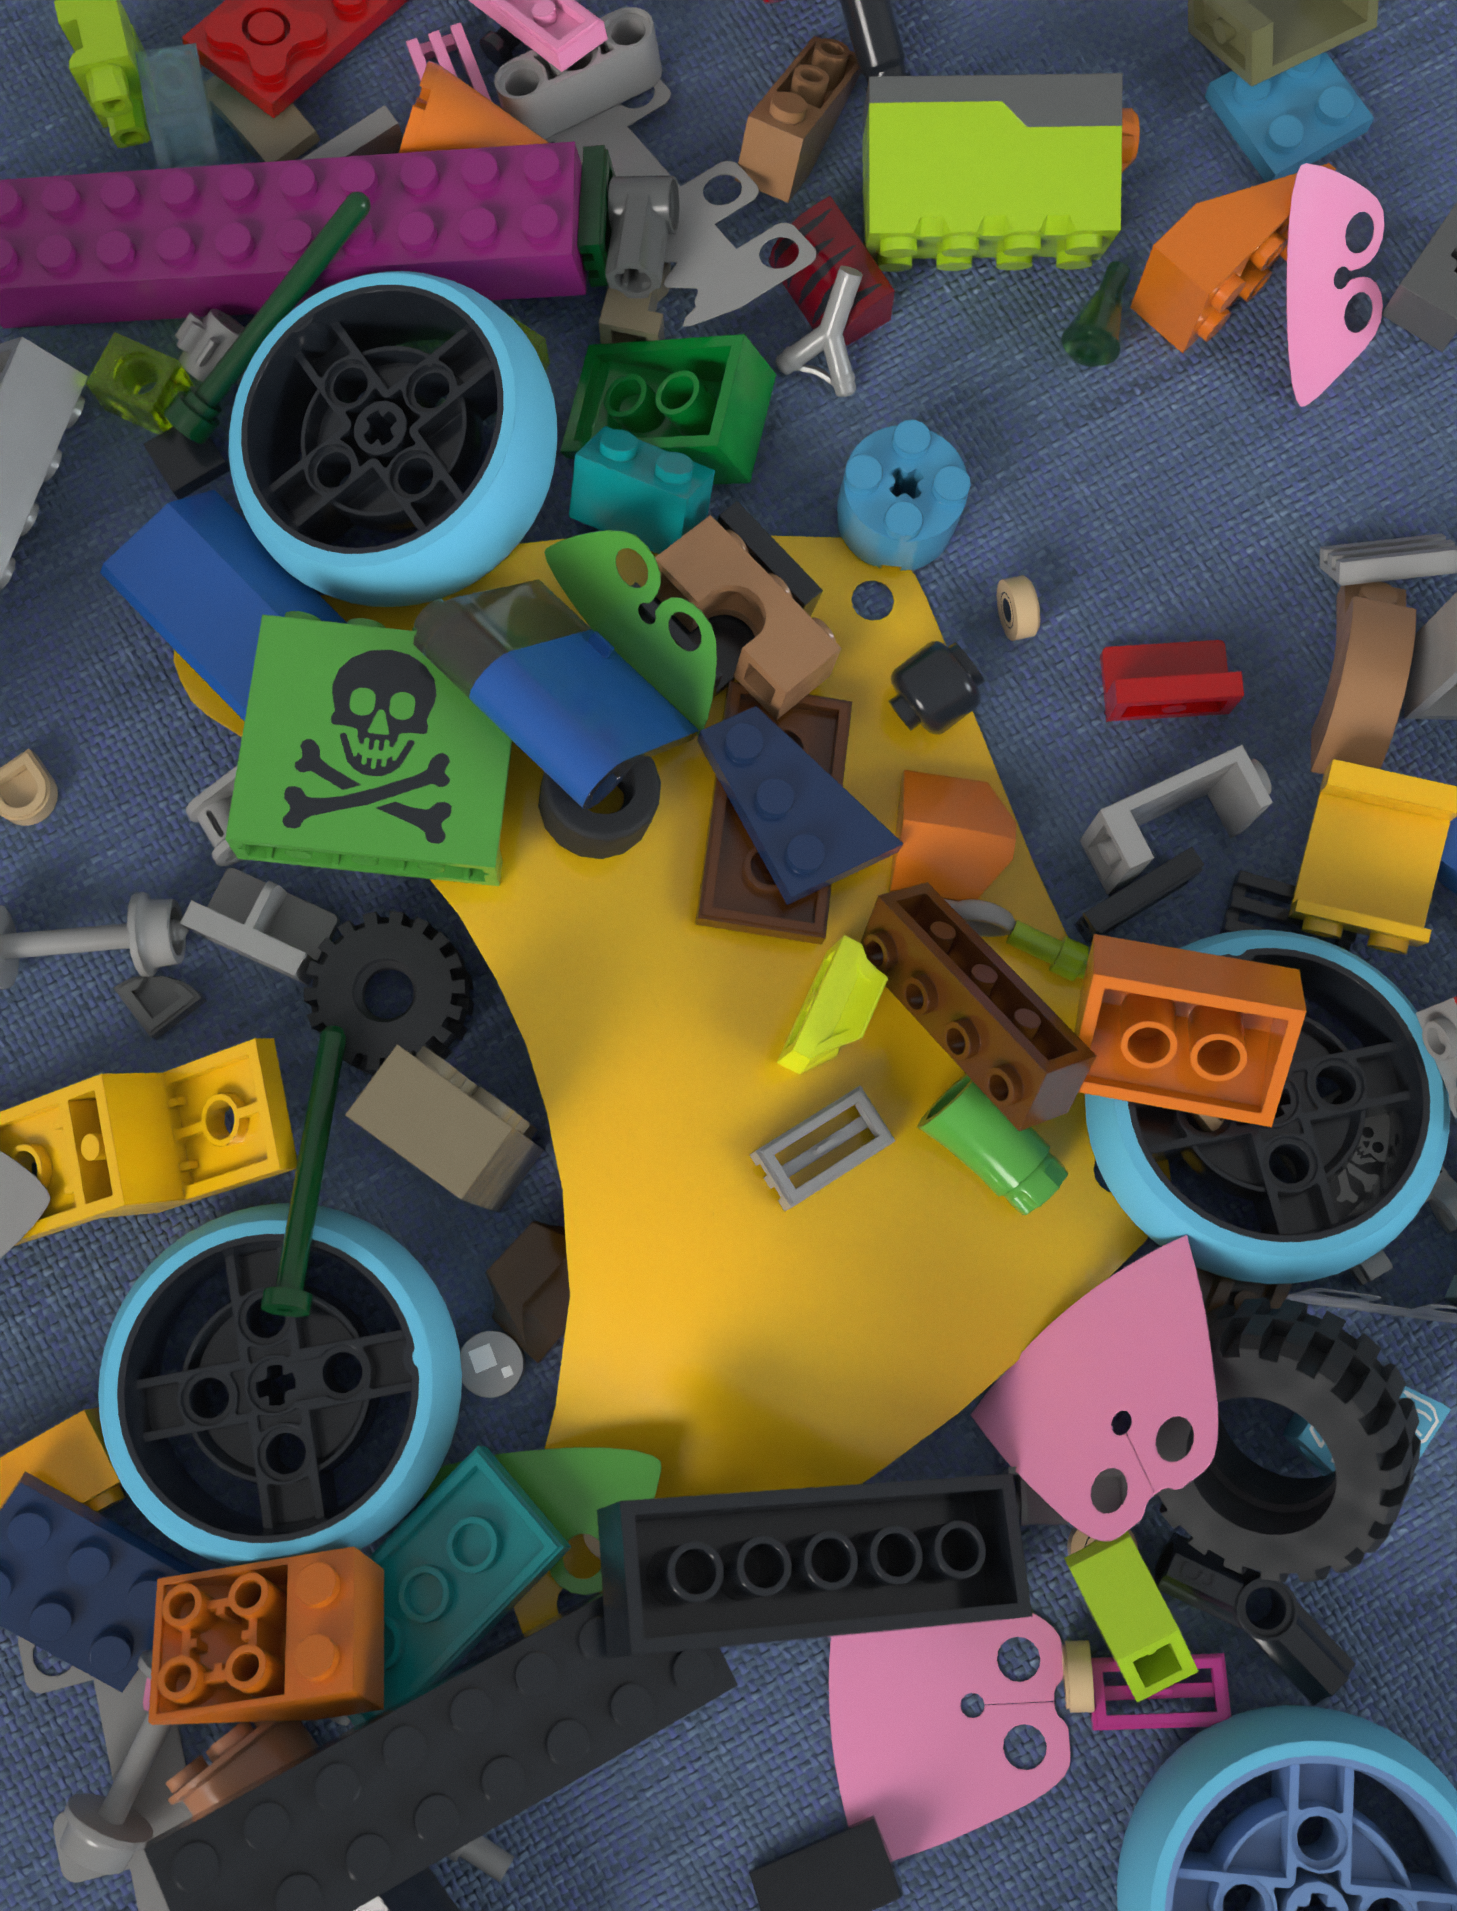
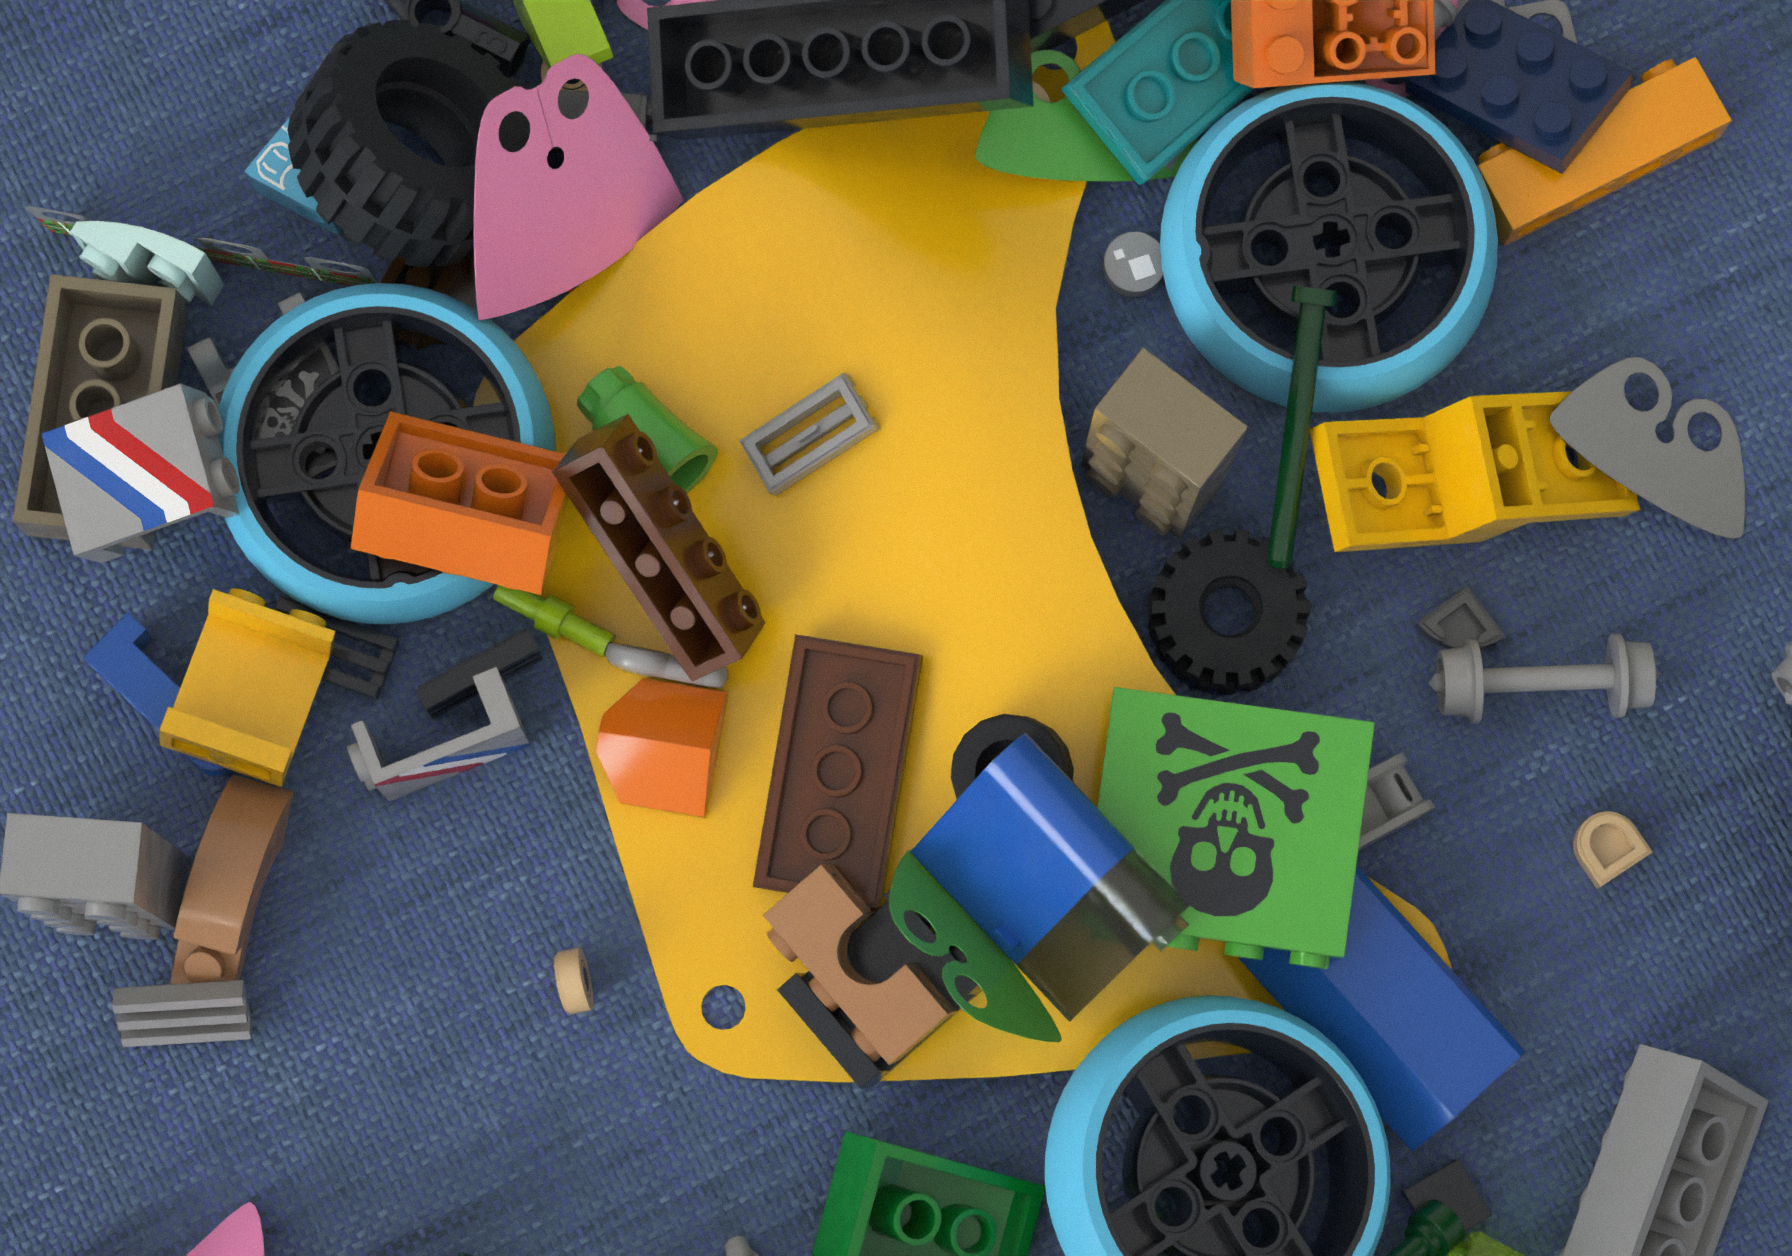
camera: 175 degrees right, 0 degrees up
(263, 924) = (1357, 684): light grey panel -> none
(533, 1289) = (1090, 325): dark brown slope -> none
(638, 489) = (960, 1113): teal brick -> none
(791, 807) = (821, 764): dark blue wing -> none
(834, 1008) = (790, 562): neon yellow slope -> none
(902, 496) = (650, 1093): dark azure brick -> none
(936, 687) = (666, 894): black head -> none
(1168, 681) = (425, 901): red panel -> none

